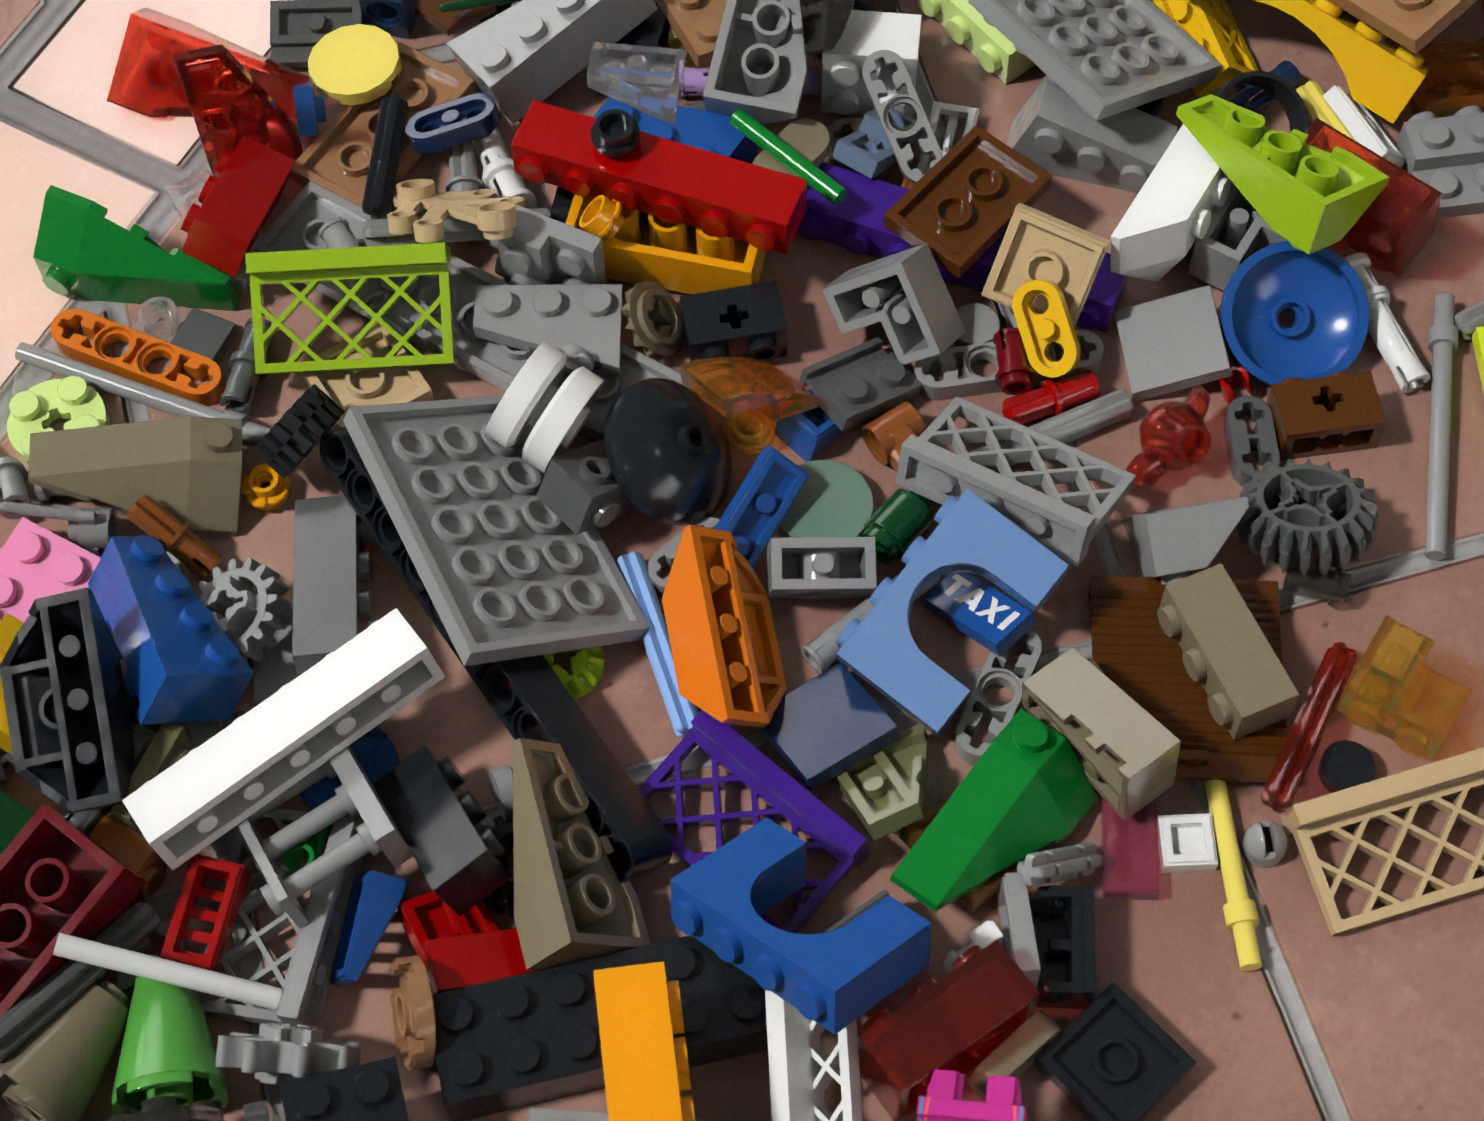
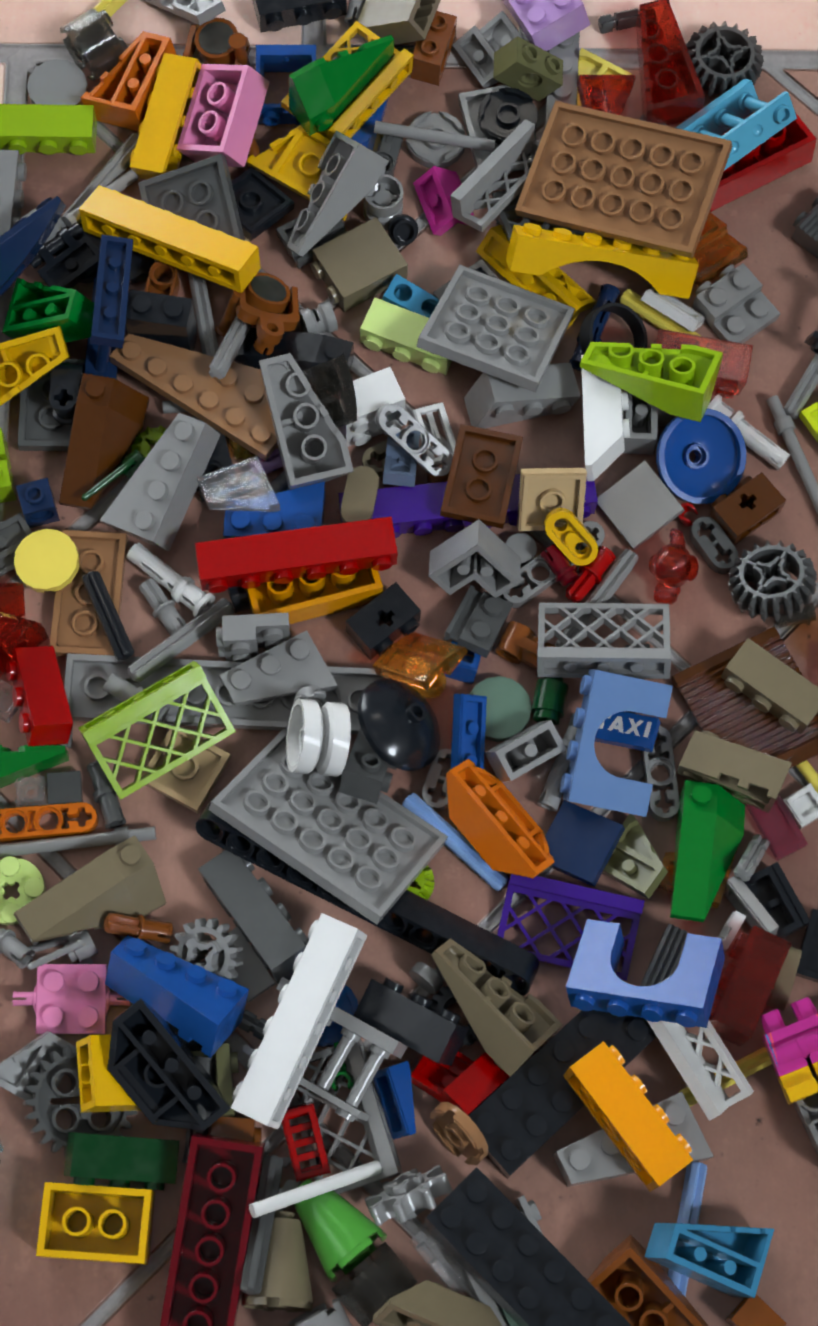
camera: 35 degrees left, 10 degrees up
(266, 498) = (175, 868): light orange plate -> none
(298, 431) = (175, 824): black tyre -> none
(309, 109) = (36, 605): blue plate -> none
(453, 123) = (137, 572): dark blue plate -> none
(481, 207) = (146, 633): tan plant -> none
(602, 217) = (278, 598): light orange plate -> none
(615, 133) = (263, 544): black plate -> none
(652, 304) = (331, 632): dark tan gear -> none
(788, 157) = (362, 500): green bar -> none
(1182, 537) = (712, 625): light grey slope -> none

